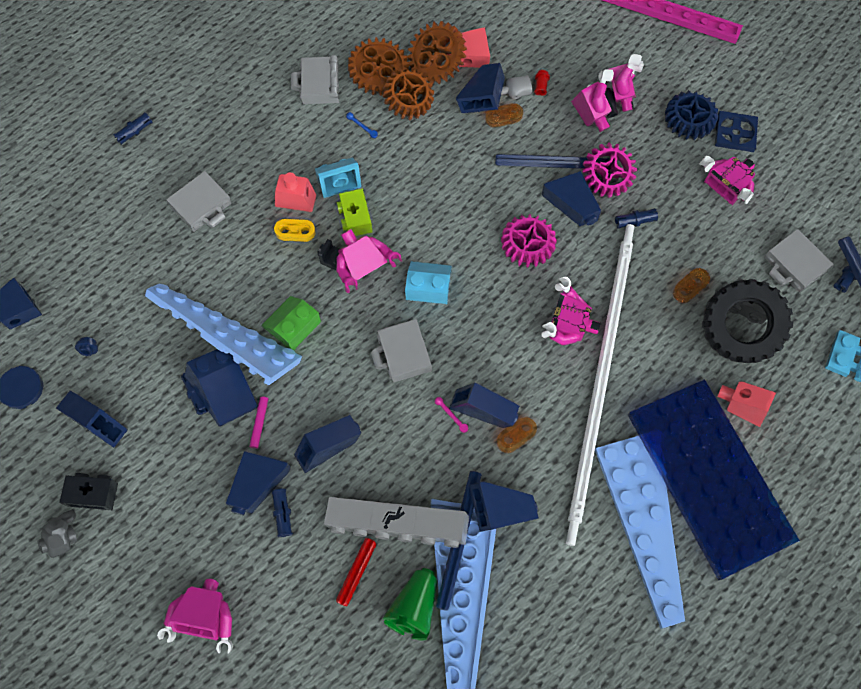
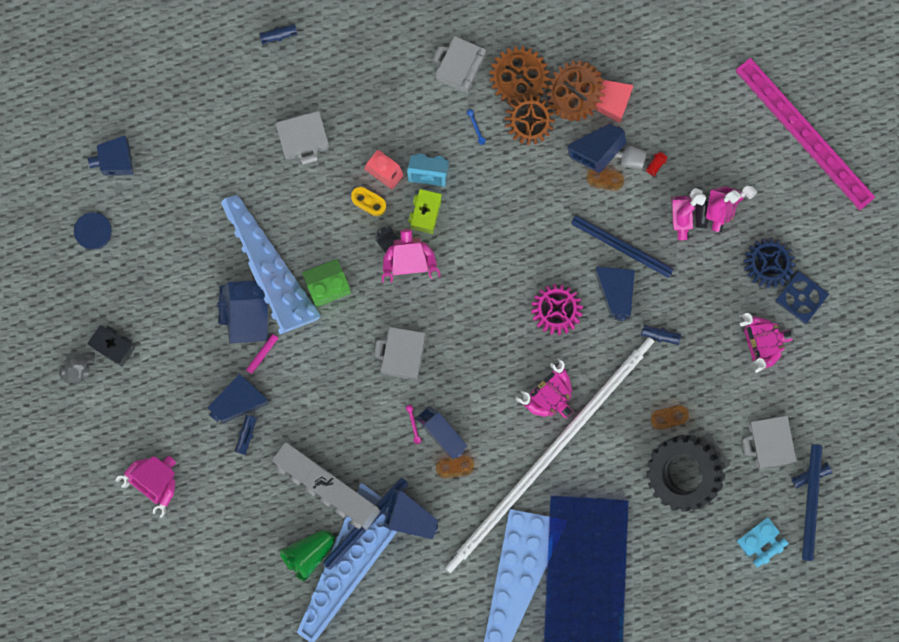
camera: 30 degrees right, 10 degrees up
(86, 346) = (157, 222): dark blue plate -> none
(92, 418) = (136, 286): dark blue slope -> none
(326, 442) = (305, 398): dark blue slope -> none
(356, 572) = (279, 507): red axle -> none
(428, 282) = (454, 303): medium azure slope -> none
(617, 171) = (654, 274): dark pink gear -> none
(748, 401) = (652, 542): coral torso -> none

